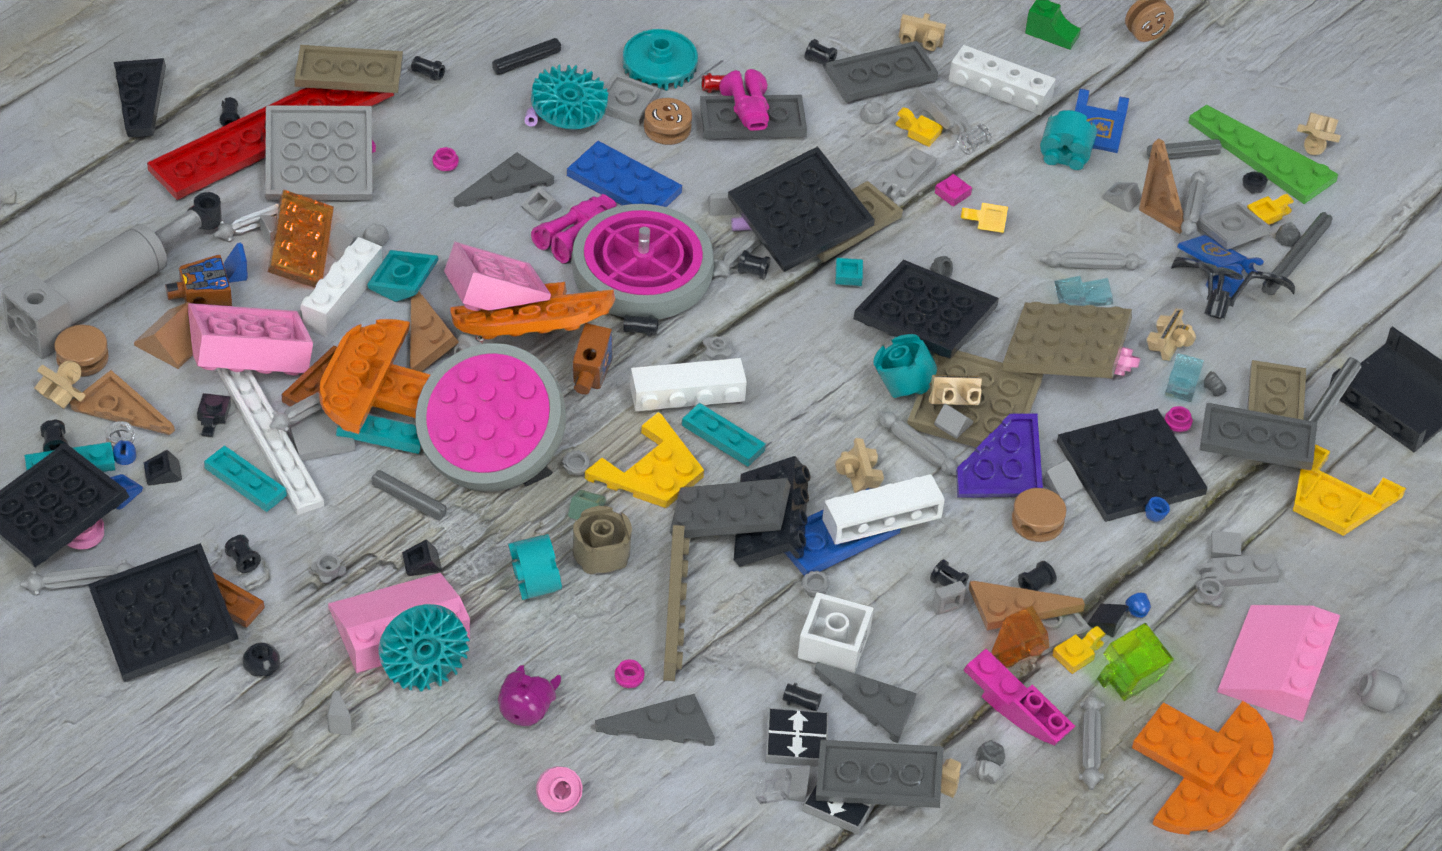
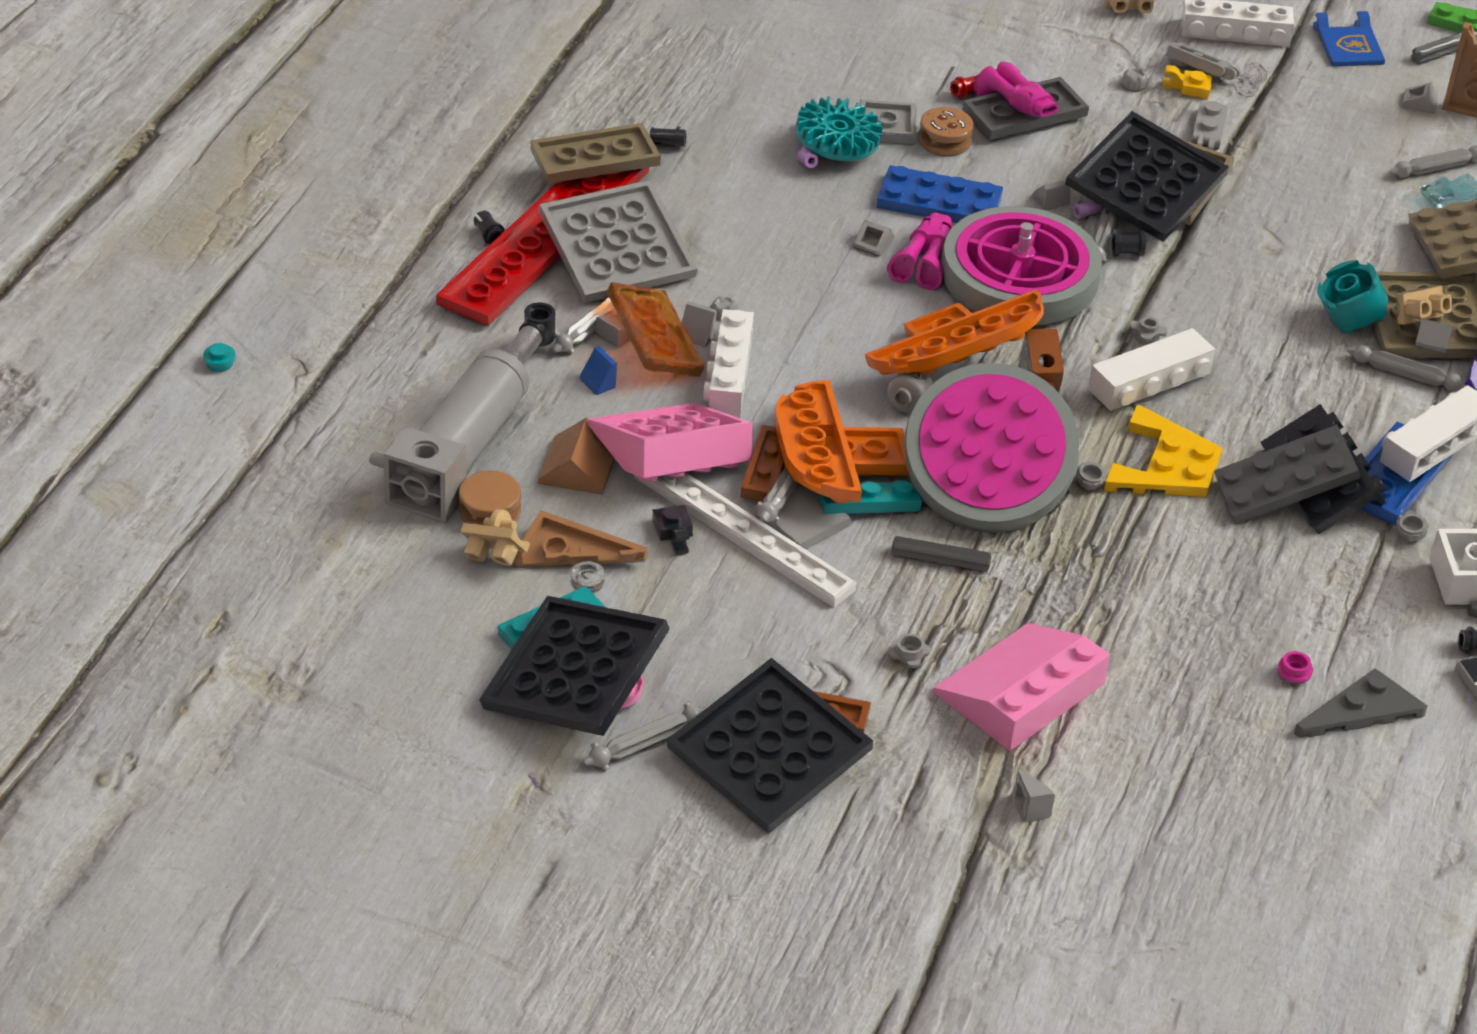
camera: 20 degrees left, 5 degrees down
(53, 434) = (515, 592): black bush -> none
(127, 458) = (603, 586): blue hinge -> none
(140, 94) = (378, 230): black wing -> none
(162, 469) = (657, 599): black slope -> none
(202, 283) = (579, 396): torso -> none
(242, 553) = (821, 662): black bush -> none
(245, 478) = (758, 583): teal plate -> none
(261, 659) = (903, 765): black plate -> none
(402, 274) = (784, 338): teal slope -> none
(421, 559) = (998, 615): black slope -> none
(423, 646) = (1086, 695): teal wheel -> none
(428, 334) = (855, 389): medium nougat wing -> none
(445, 159) = (747, 219): dark pink plate -> none
(492, 279) = (888, 317): bright pink slope -> none
(508, 178) = (822, 224): dark grey wing -> none
(526, 56) = (759, 104): black axle -> none
(526, 698) = (1213, 720): magenta hair -> none
(535, 566) = (1134, 584): teal brick -> none
(559, 789) = (1316, 803): bright pink plate -> none
(583, 500) = (1129, 516): sand green slope -> none
(601, 540) = (1178, 541): dark tan brick -> none
(641, 325) = (1065, 325): black pin -> none
(660, 58) = (895, 75): teal wheel -> none
(675, 611) = (1291, 585): dark tan plate -> none
(723, 434) = (1216, 409): teal plate -> none
(820, 53) = (1049, 37): black bush -> none
(849, 271) = (1223, 227): teal plate -> none
(858, 466) = (1372, 404): tan hips -> none
(881, 71) = (1117, 40): dark grey plate -> none
(926, 305) = (1324, 237): black plate -> none
(943, 266) = (1307, 202): dark grey piece -> none
(953, 190) = (1262, 130): dark pink plate -> none
(990, 217) = (1318, 145): yellow plate -> none
(1068, 139) = (1344, 57): teal brick -> none

